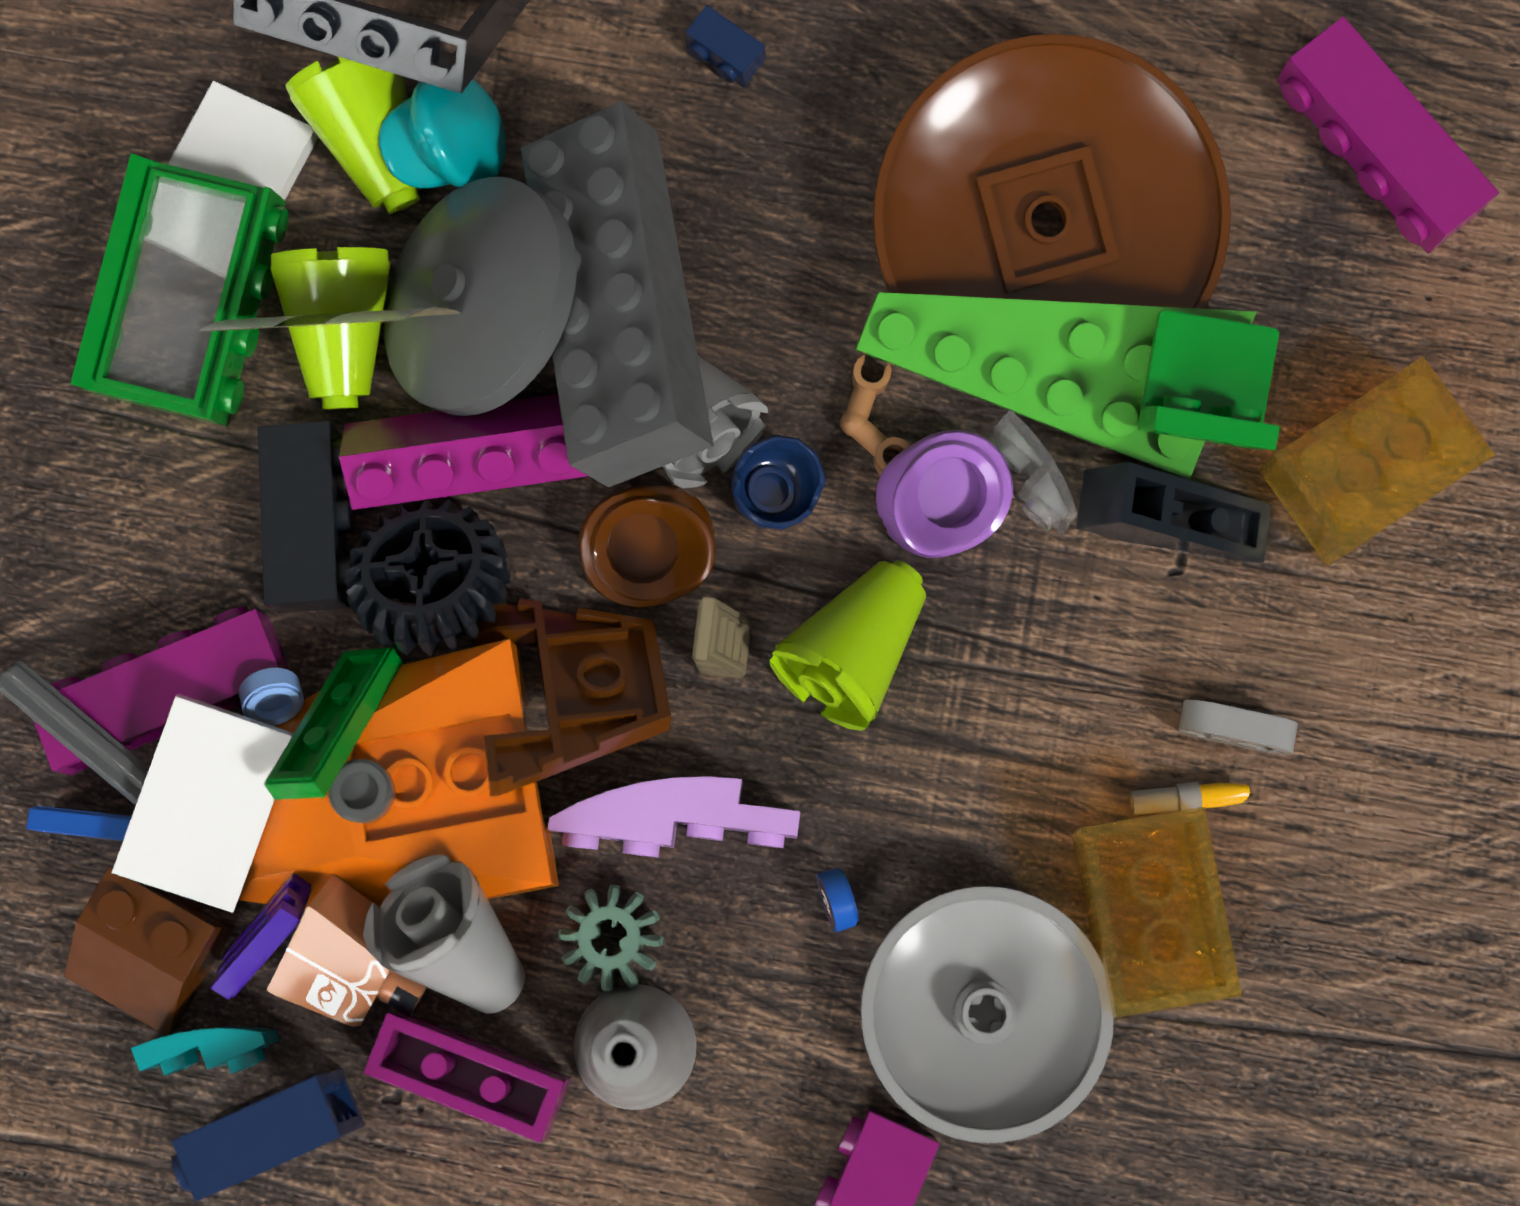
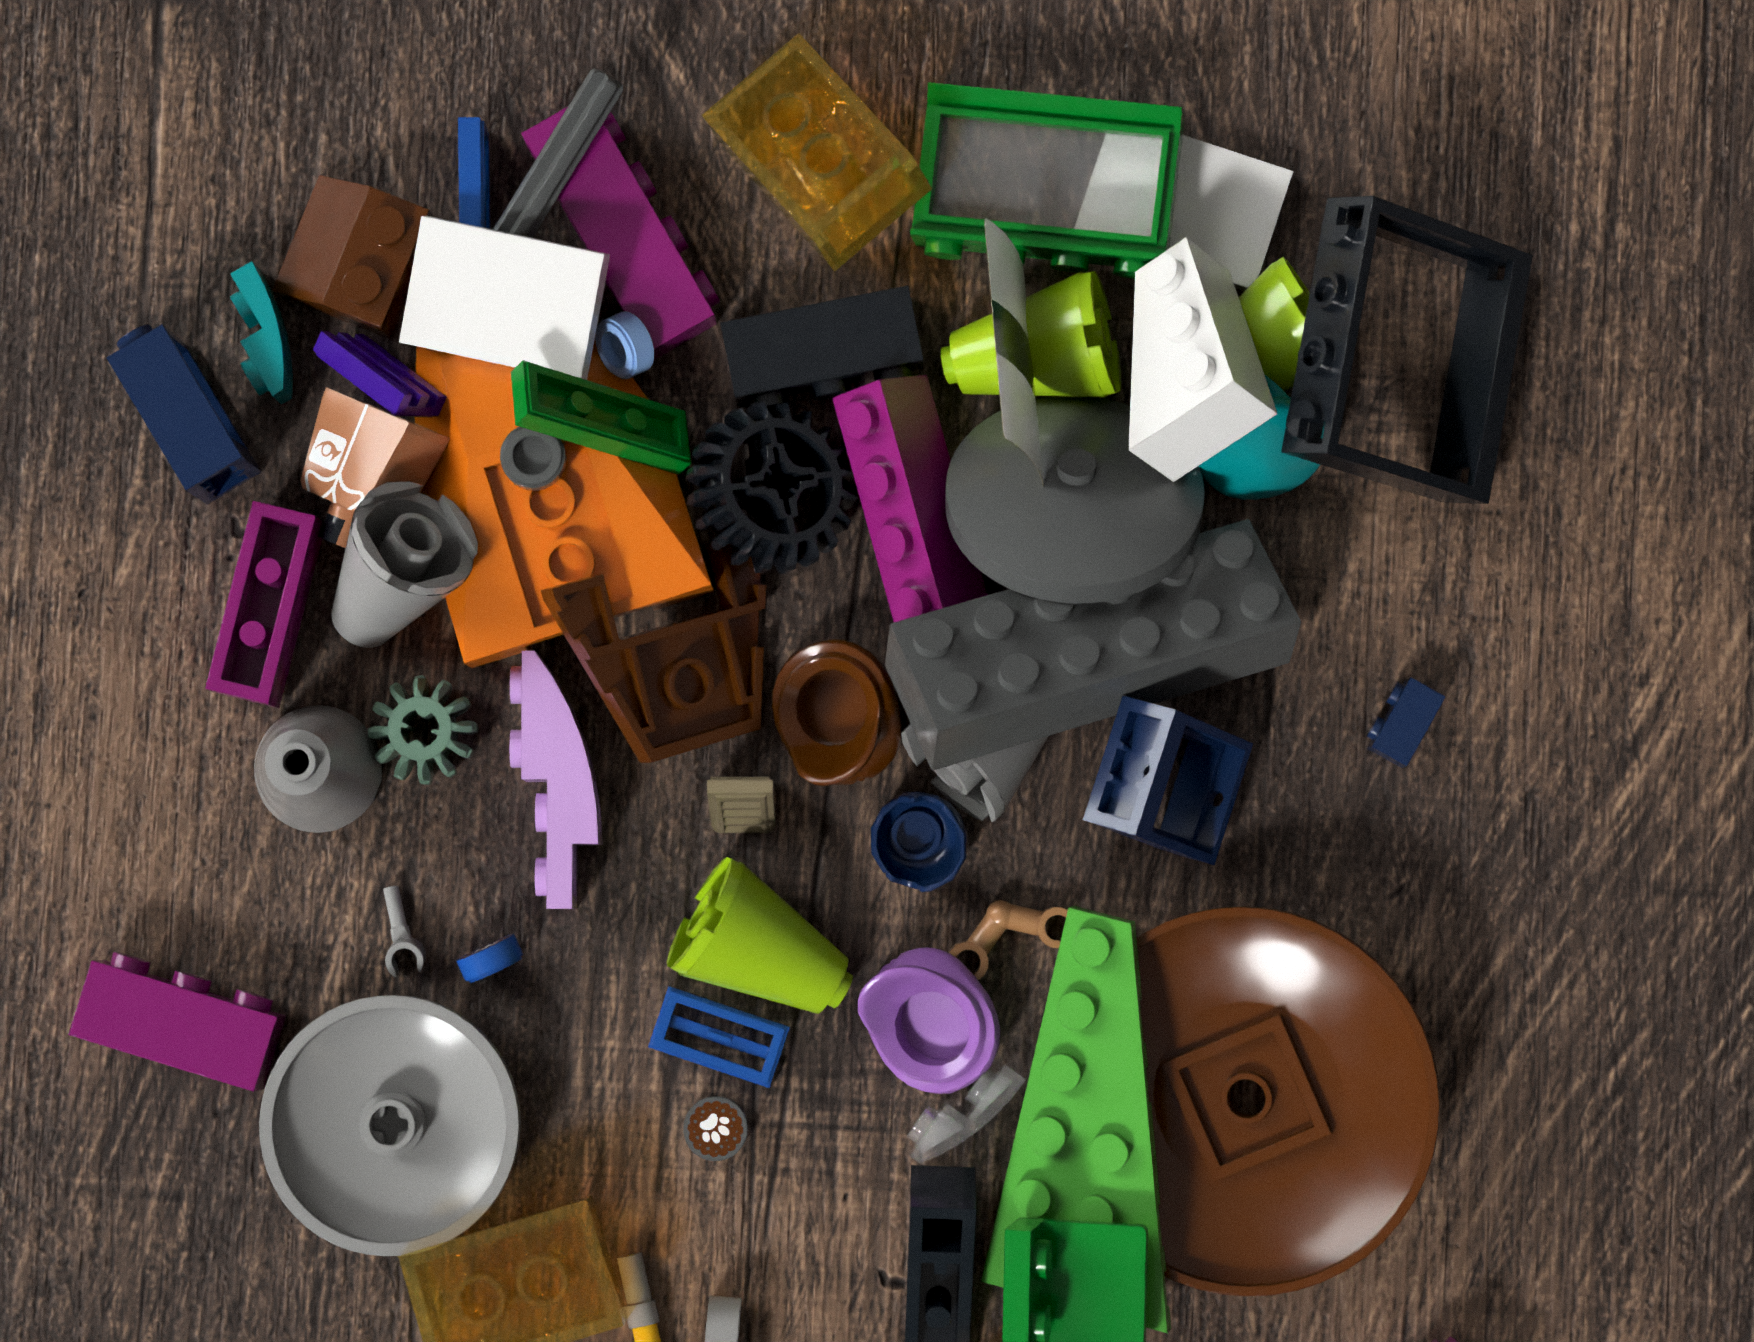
camera: 75 degrees right, 5 degrees up
(116, 491) = (817, 151): none -> clear yellow brick
(369, 167) = (1192, 363): none -> white wedge
(777, 253) = (1138, 771): none -> dark blue window
(801, 985) = (400, 932): none -> light grey hand
(914, 740) = (668, 1019): none -> blue tile
(1021, 707) = (715, 1128): none -> tile

